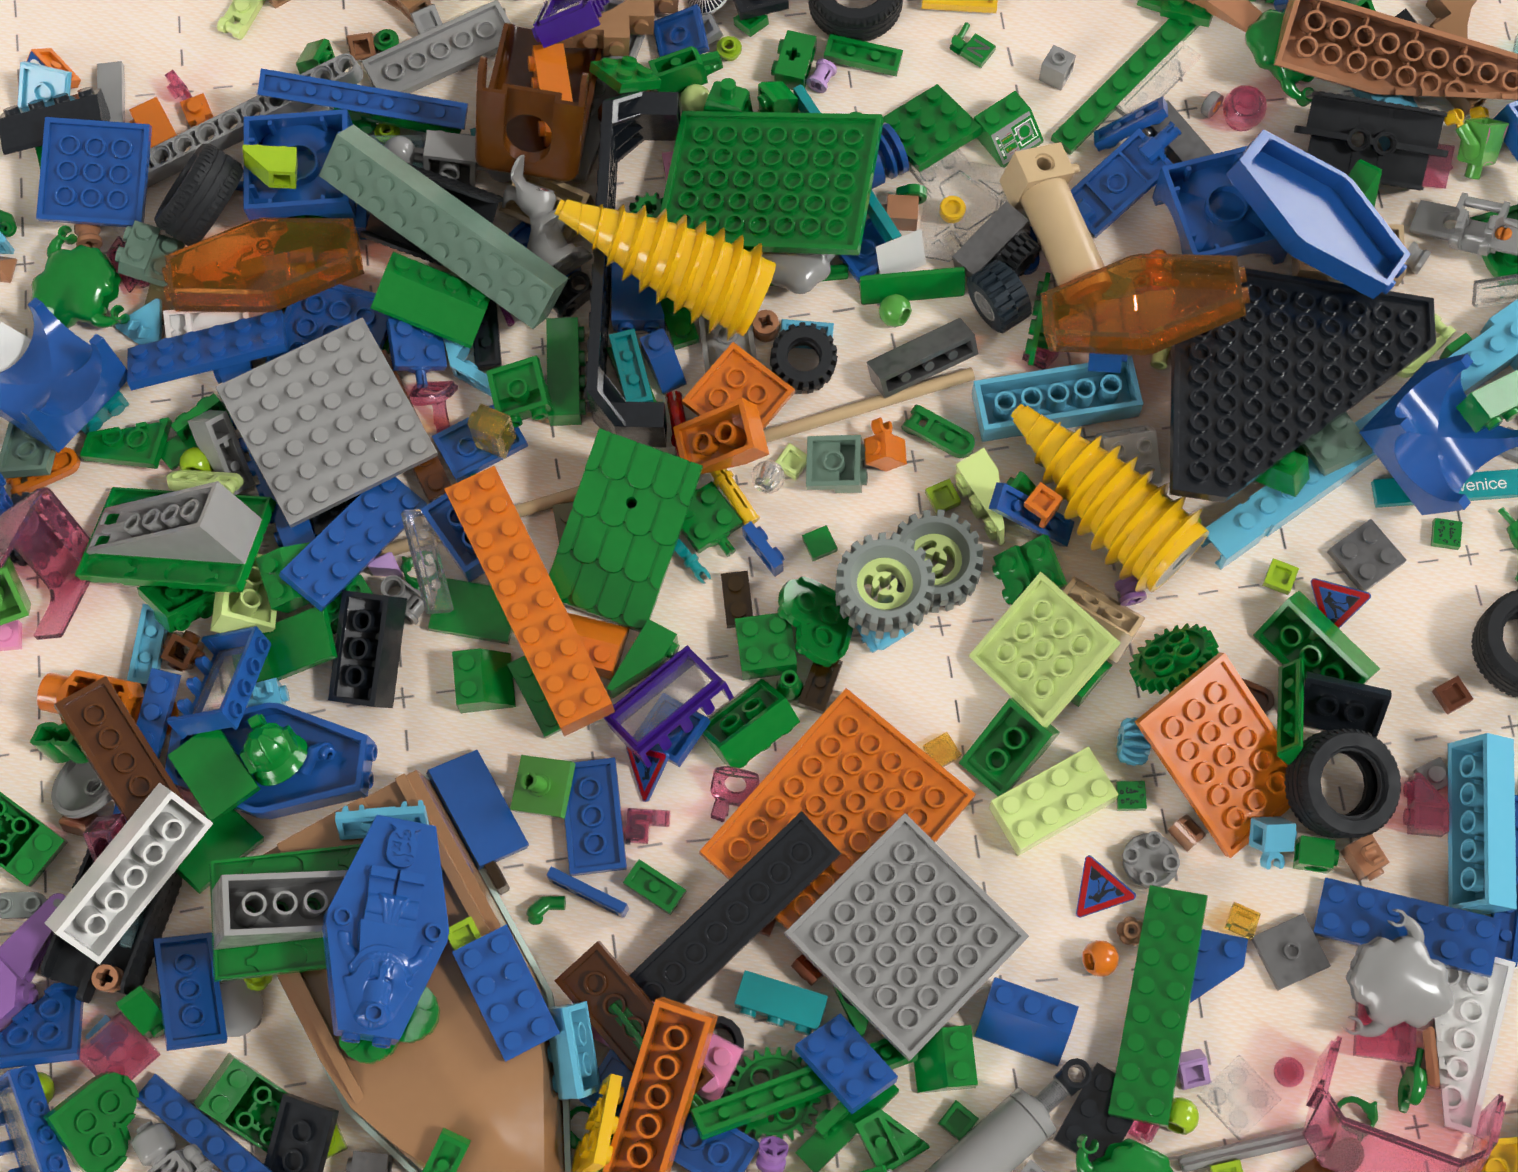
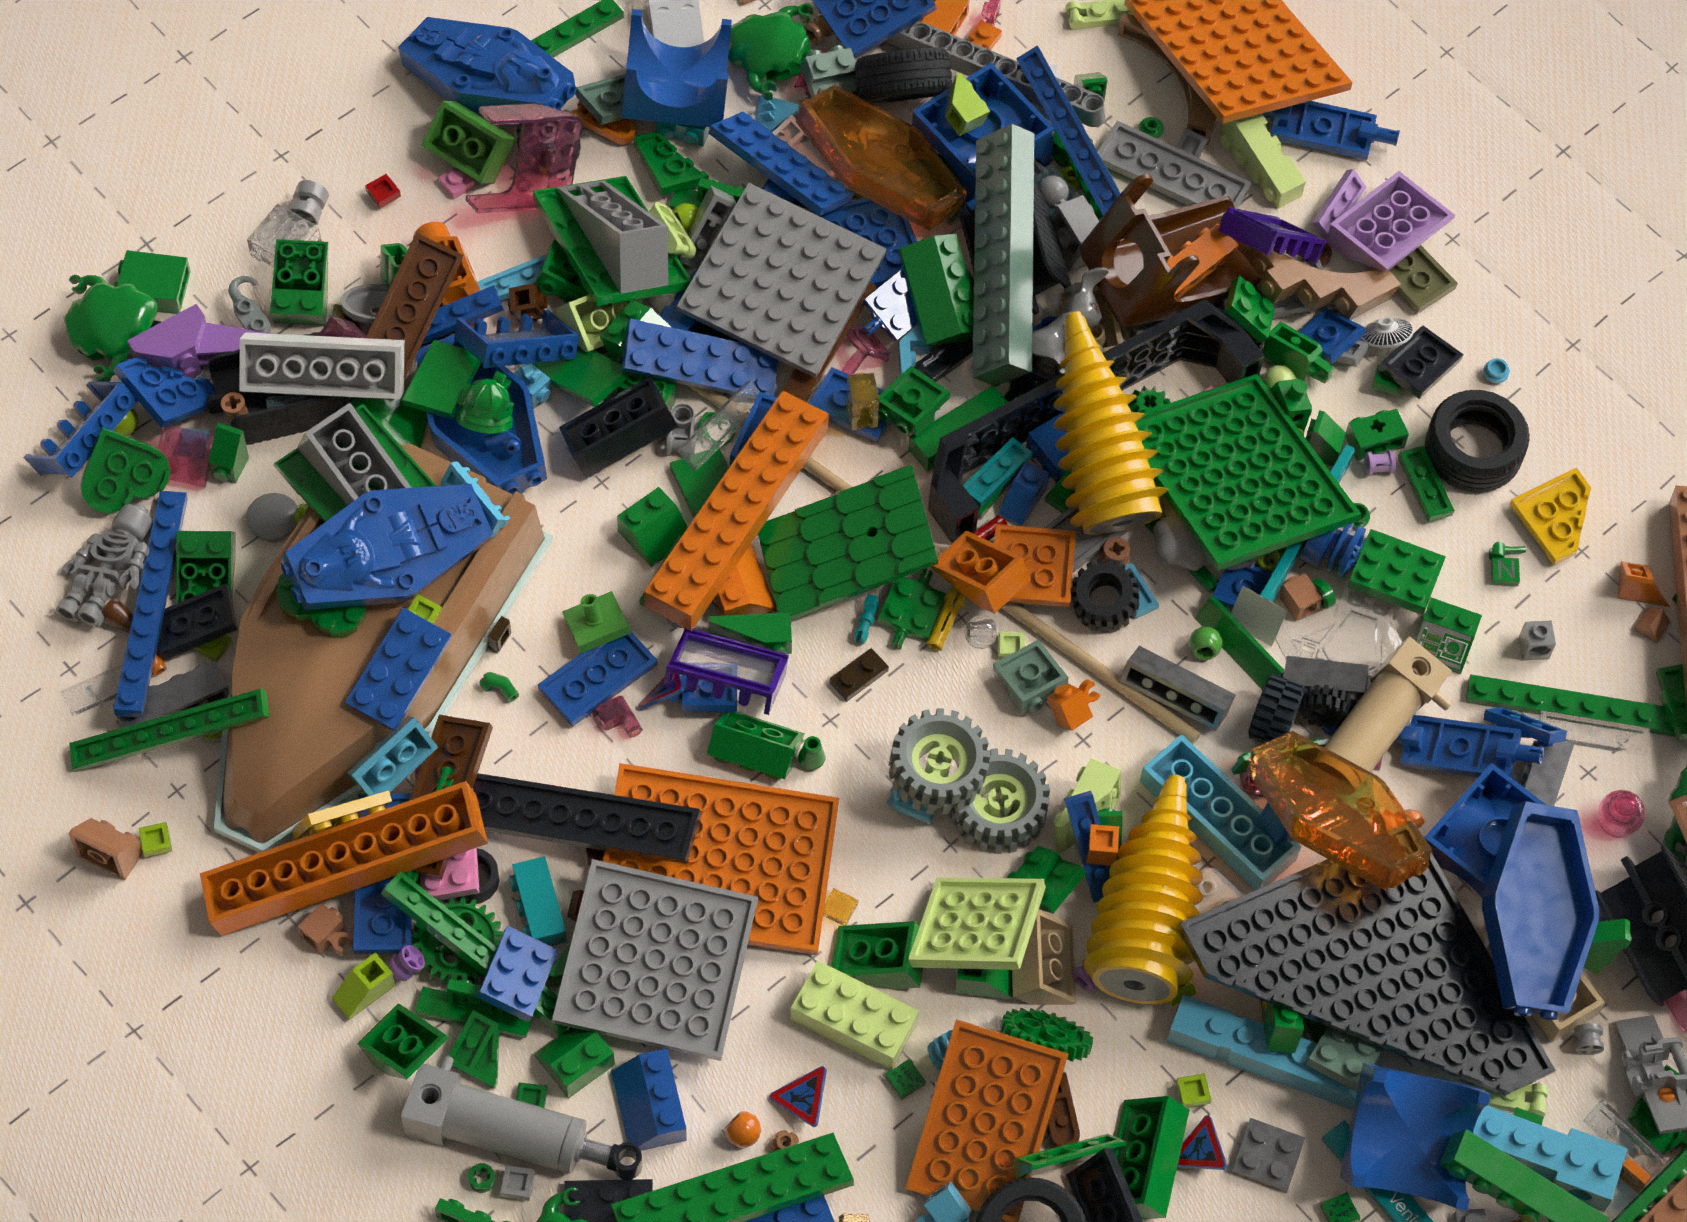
camera: 50 degrees right, 10 degrees down
(188, 992) = (251, 478): blue plate -> none
(361, 45) = (1131, 113): nougat slope -> none
(385, 566) = (698, 400): lavender slope -> none
(477, 809) = (545, 586): blue tile -> none
(587, 892) = (532, 707): blue tile -> none
(654, 887) = (570, 754): green plate -> none
(724, 796) = (683, 758): clear pink piece -> none
(732, 53) = (1346, 384): lime plate -> none
(758, 541) = (913, 674): blue plate -> none
(765, 646) = (832, 715): green brick -> none
(819, 543) = (955, 702): green tile -> none
(819, 626) = (868, 745): green plate -> none
(819, 686) = (831, 777): dark brown plate -> none
(939, 432) = (1122, 742): green plate -> none
(943, 496) = (1063, 777): lime plate -> none
(952, 209) = (1333, 633): yellow tile -> none
(1150, 860) = (858, 1125): light grey dish -> none
(1186, 832) = (905, 1142): nougat slope -> none
(1211, 104) = (1604, 785): light grey tile -> none

